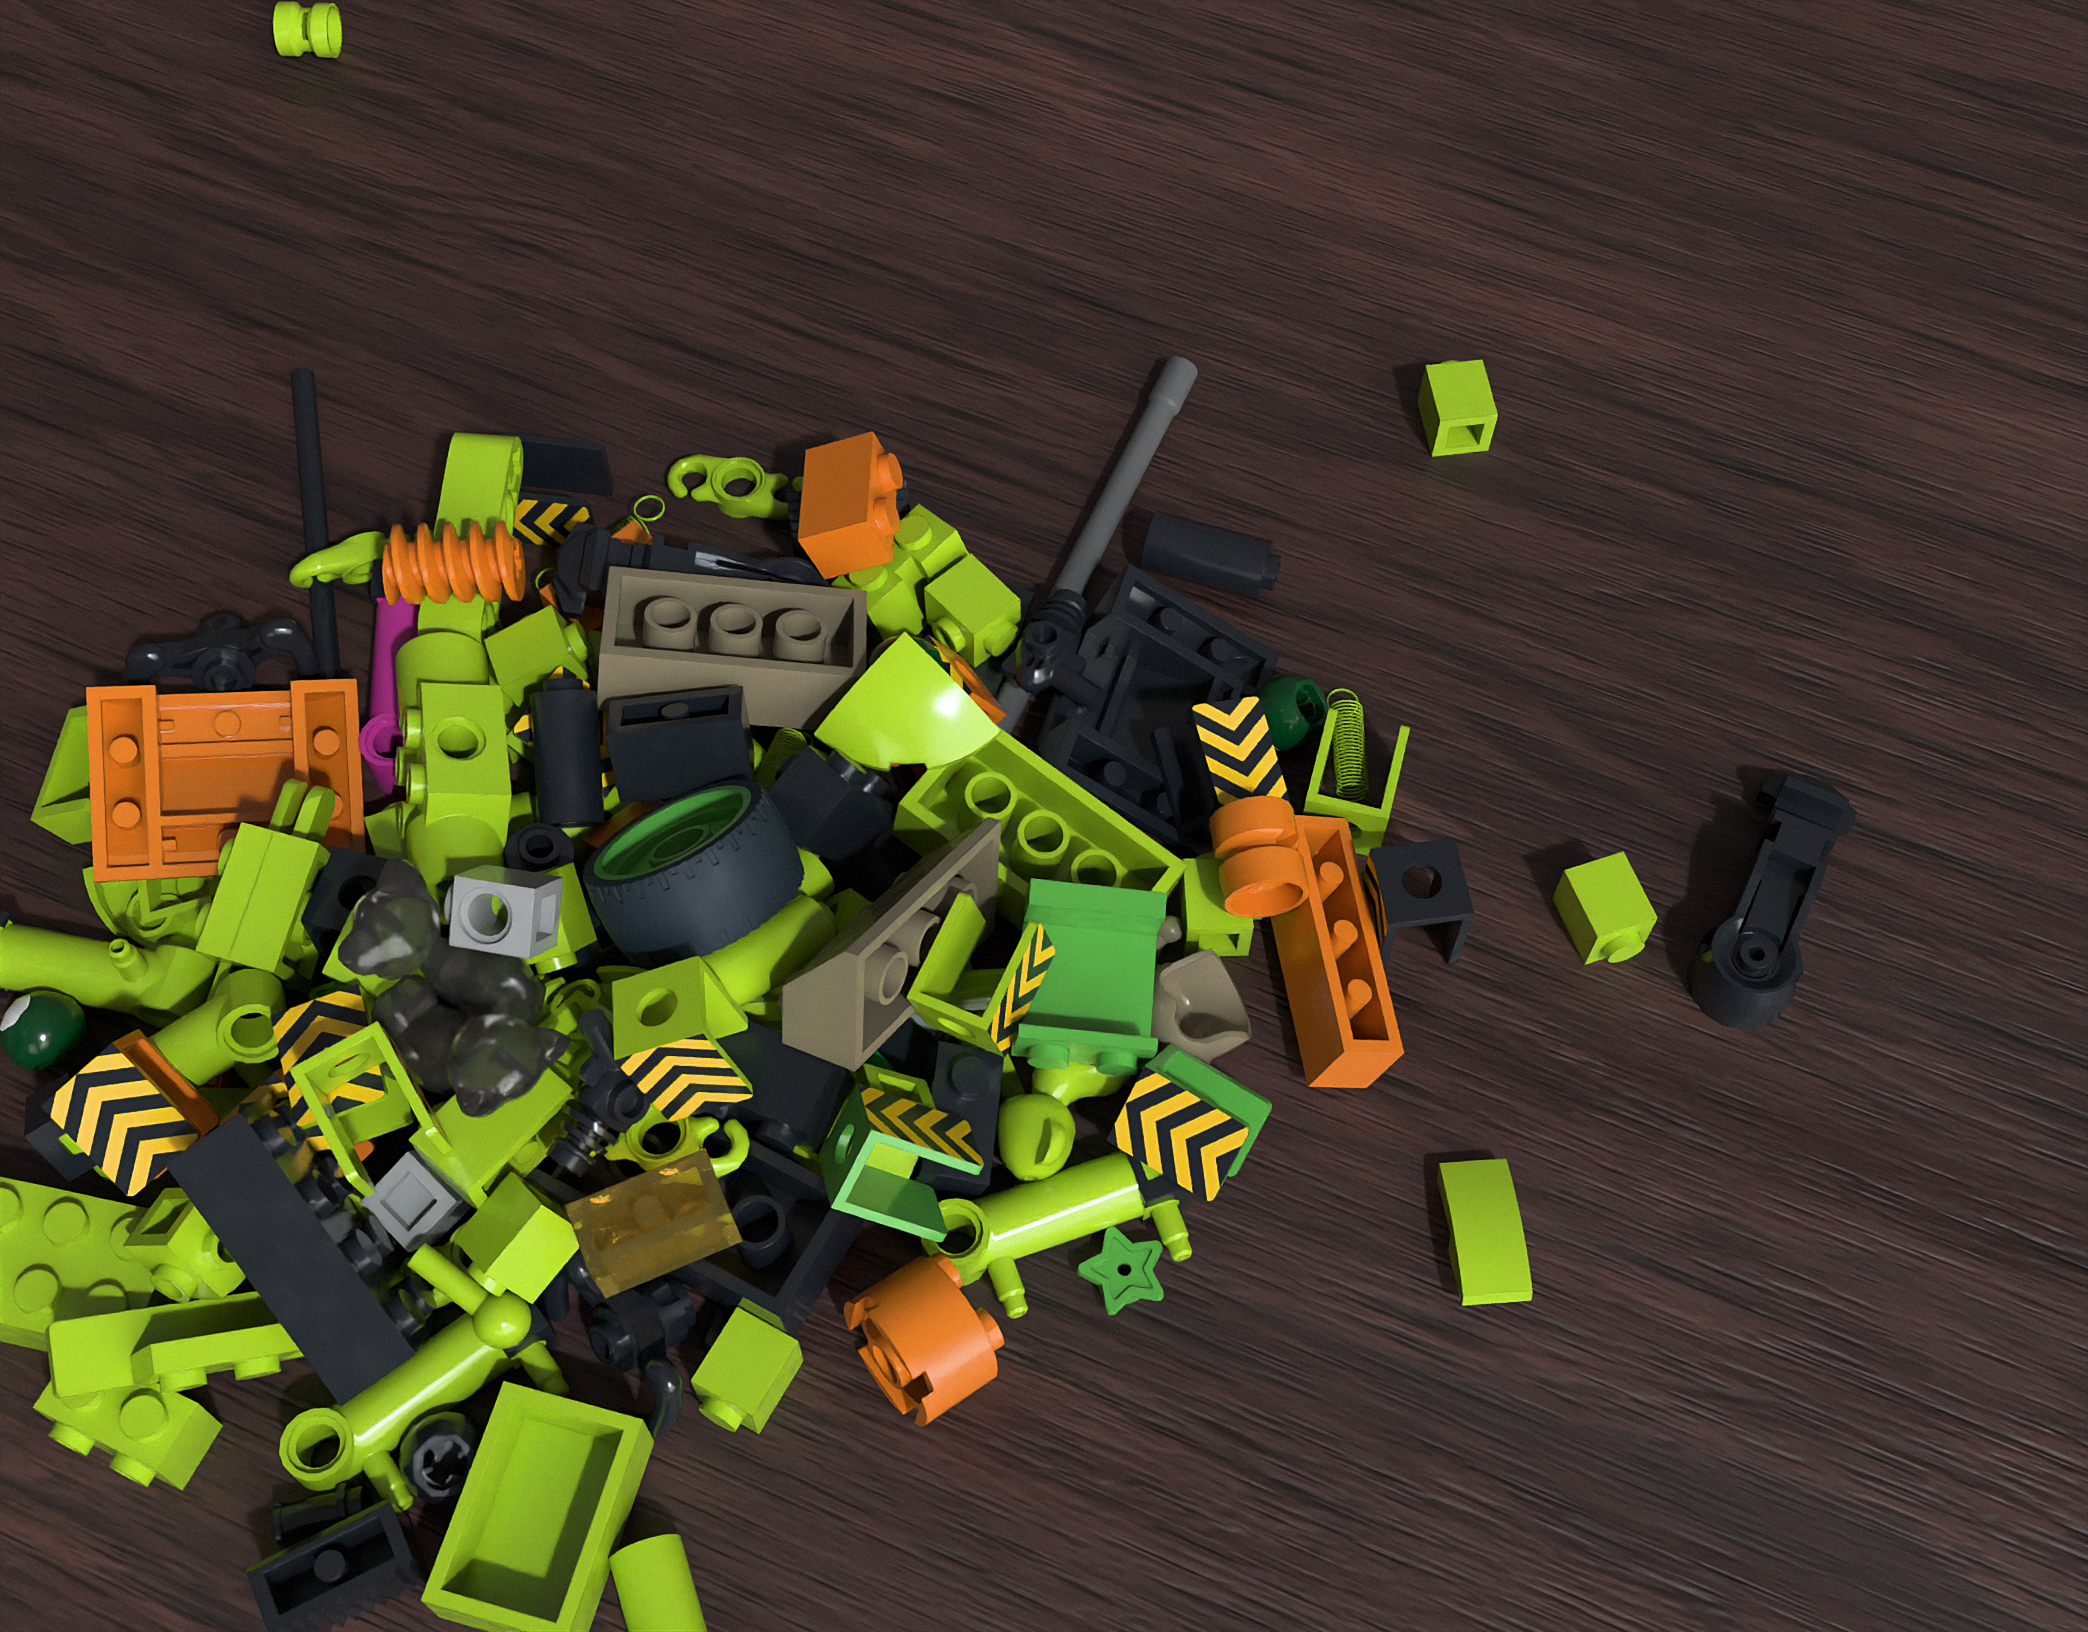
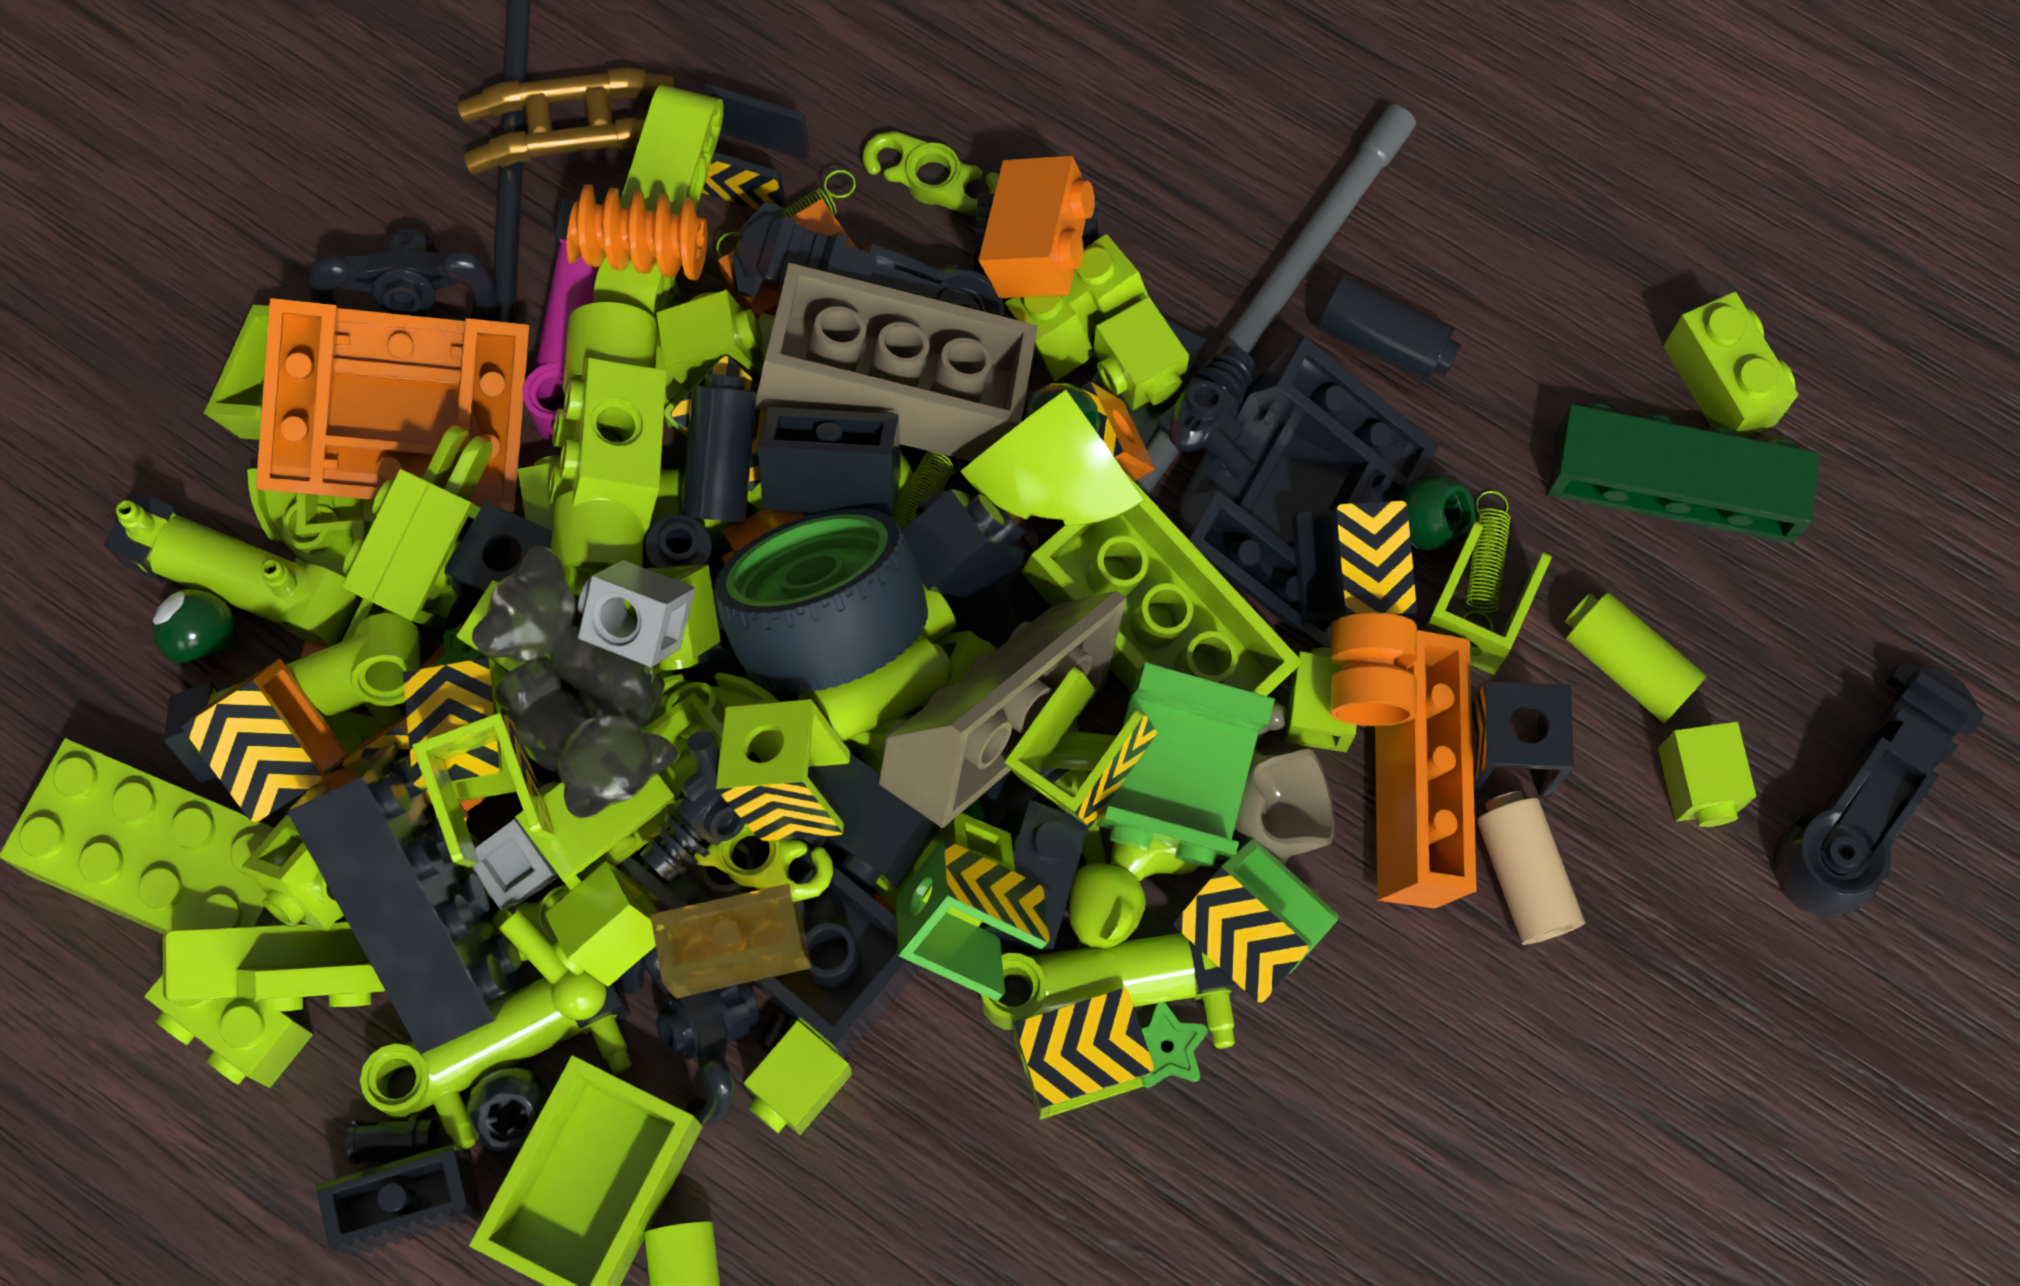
camera: 10 degrees right, 10 degrees up
(335, 478) = (536, 99): none -> pearl gold piece
(348, 560) = (546, 189): lime piece -> none
(925, 1337) = (967, 1082): orange brick -> none
(1040, 1287) = (1082, 1053): none -> piece
(1452, 1030) = (1529, 868): none -> tan brick
(1457, 407) = (1674, 209): lime brick -> none
(1485, 1232) = (1519, 1074): lime slope -> none
(1509, 812) = (1633, 655): none -> lime brick
(1519, 639) = (1684, 473): none -> dark green brick
(1542, 538) = (1731, 367): none -> lime brick

